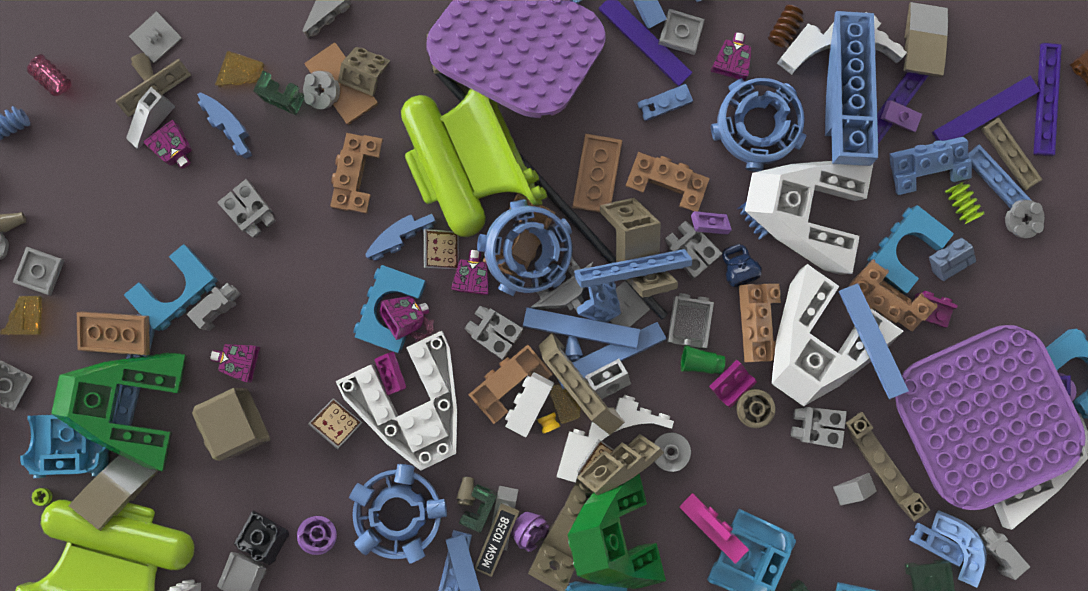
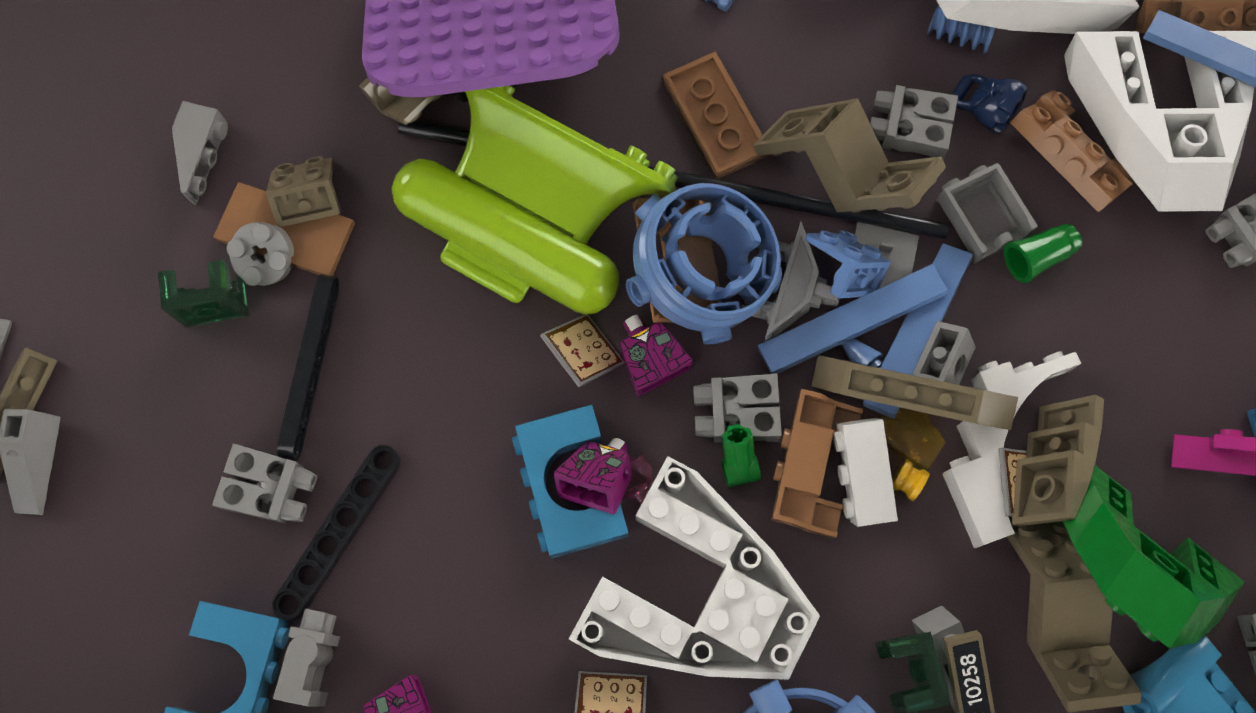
camera: 35 degrees left, 10 degrees down
(170, 145) = (87, 475): magenta torso -> none
(222, 119) = (151, 385): medium blue slope -> none
(238, 70) = (124, 308): clear yellow wing -> none
(266, 250) = (331, 528): none -> black beam
(306, 163) = (308, 367): none -> black beam
(350, 171) = (379, 338): medium nougat bracket -> none
(390, 373) = (639, 570): magenta bracket -> none
(392, 237) = (503, 382): medium blue slope -> none
(465, 492) = (873, 666): dark tan cone -> none
(475, 354) = (739, 460): none -> green piece
(528, 530) = (1007, 651): medium lavender cone -> none
(633, 268) = (866, 184): medium blue plate -> none
(669, 176) = (813, 53): medium nougat bracket -> none
(681, 454) = (1114, 388): light grey dish -> none
(711, 222) = (911, 70): medium lavender plate -> none
(732, 384) = (1107, 252): magenta bracket -> none
(755, 408) = (1164, 259): dark tan cone -> none

